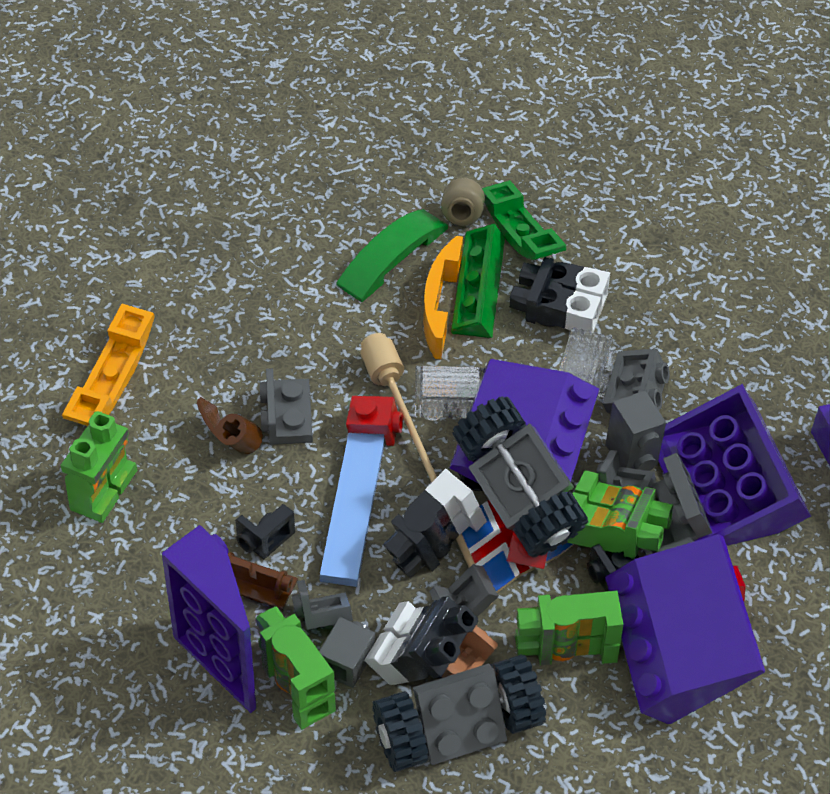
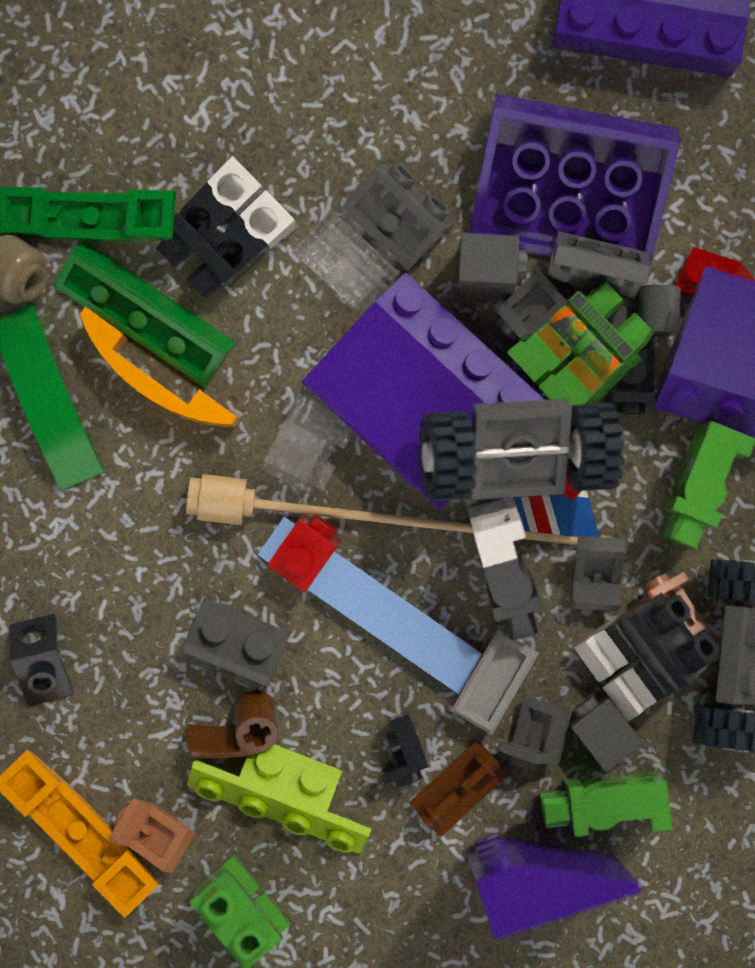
camera: 65 degrees left, 35 degrees up
(131, 404) = (152, 834): none -> nougat bracket
(198, 473) = (286, 790): none -> lime bracket
(212, 308) = (39, 663): none -> black bracket
(346, 564) = (494, 681): none -> light grey tile

